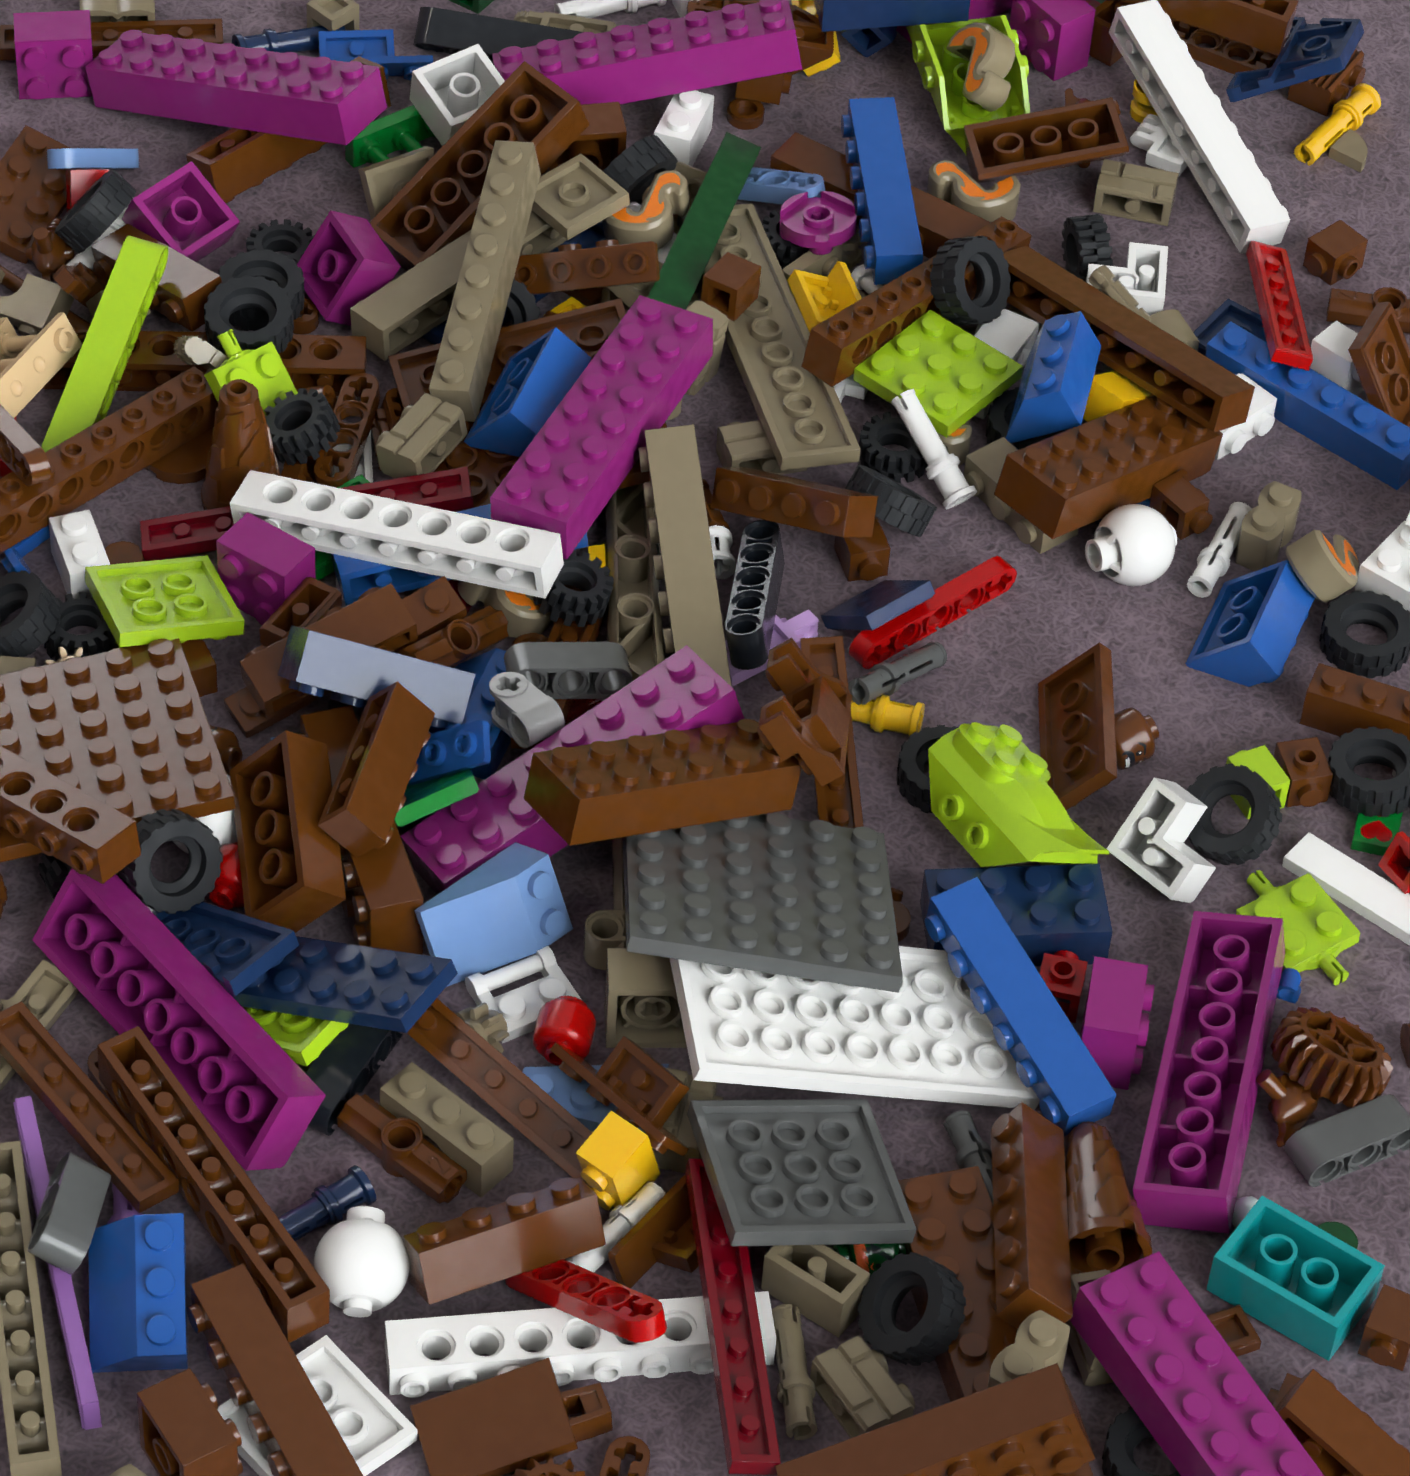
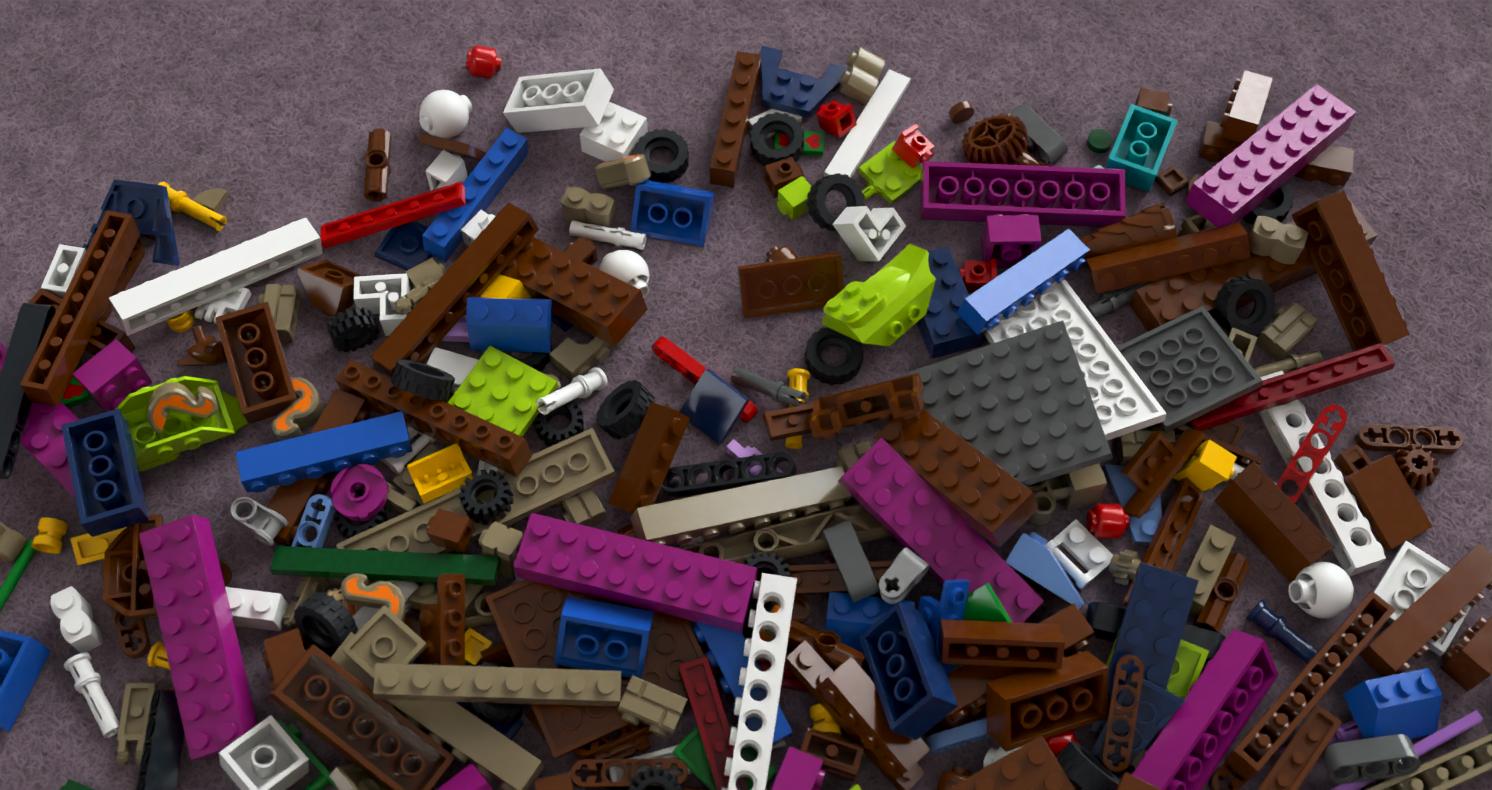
camera: 100 degrees left, 15 degrees up
(241, 917) = (1126, 713): none -> reddish brown beam
(774, 327) = (480, 484): none -> black tyre
(796, 121) = (261, 523): none -> light grey piece
(1190, 240) = (328, 286): none -> reddish brown slope
(1335, 253) = (324, 196): reddish brown brick -> none
(1344, 927) = (913, 147): none -> red brick

